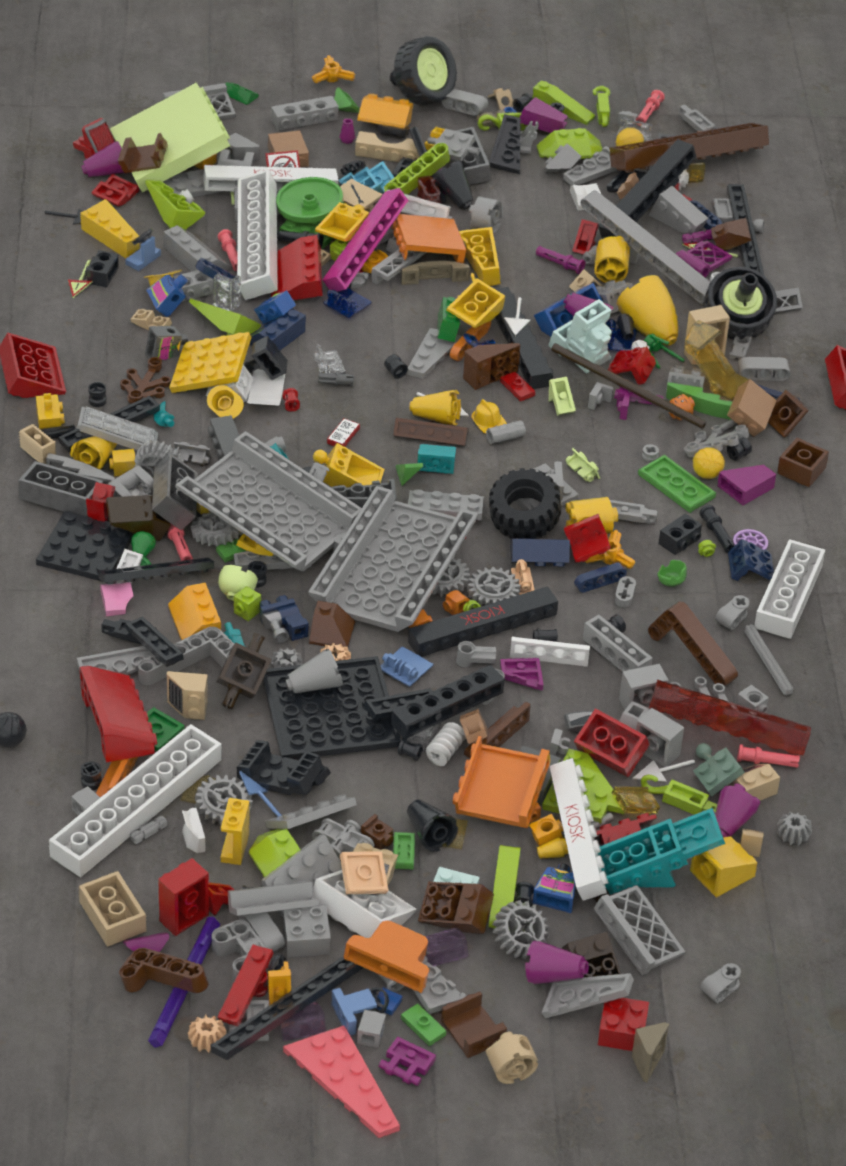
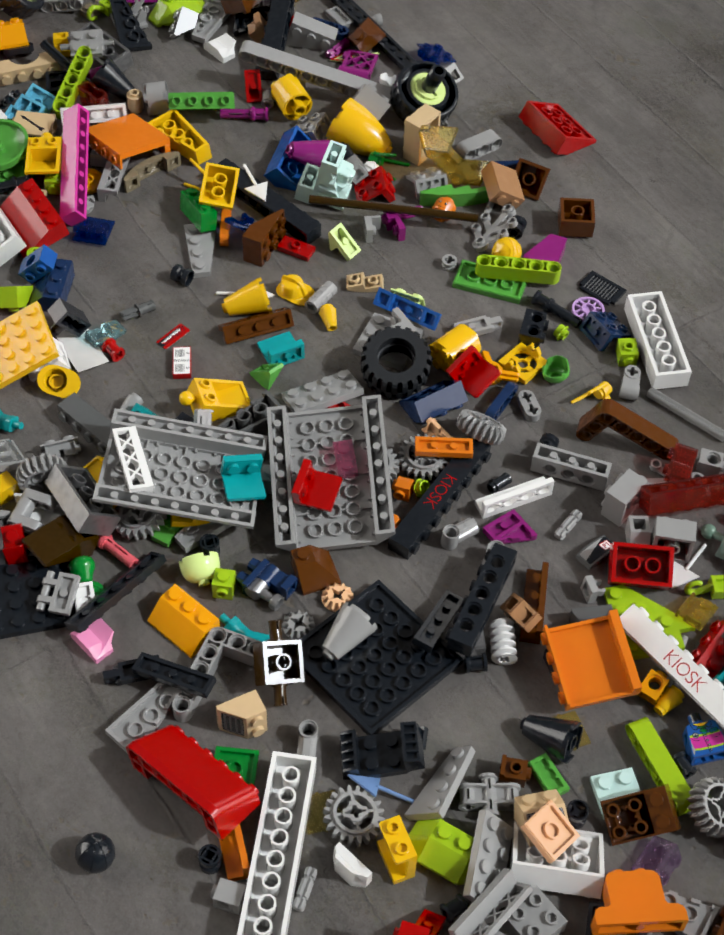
camera: 30 degrees left, 10 degrees up
(113, 548) = (63, 595): none -> light grey plate
(230, 735) = (307, 743): none -> light grey piece
(236, 474) = (137, 458): none -> white fence
(301, 383) = (108, 329): none -> clear light blue slope
(317, 528) = (243, 477): none -> teal bracket
(328, 361) = (119, 296): clear bracket -> none
(352, 411) = (173, 336): none -> sticker
(371, 562) = (315, 488): none -> red bracket
(404, 883) = (579, 810): none -> black wheel
(405, 666) = (406, 575): medium blue hinge -> none
(415, 553) = (345, 459): none -> clear pink plate
(463, 208) = (135, 101): none -> tan brick
(500, 450) = (328, 316): none -> yellow cone
(511, 582) = (443, 447): none -> orange plate
(523, 231) = (201, 100): none -> bright green fence
(553, 436) = (360, 283): none -> tan slope
(559, 583) = (481, 427): none -> light grey gear
(575, 470) = (412, 310): none -> blue slope
(580, 692) = (568, 524): none -> light grey axle
(582, 280) = (279, 126): tan bracket -> none
(621, 340) = (359, 167): none -> light grey brick
(649, 567) = (508, 360): none -> yellow piece
(681, 290) = (371, 100): none -> light grey brick
(702, 607) = (601, 391): none -> yellow plant
(706, 480) = (518, 269): none -> lime beam
(721, 684) = (680, 463): none -> clear red brick
(754, 587) = (624, 355): none -> lime brick
(779, 530) = (602, 288): none -> black window
(790, 275) = (434, 53): none -> clear blue hinge

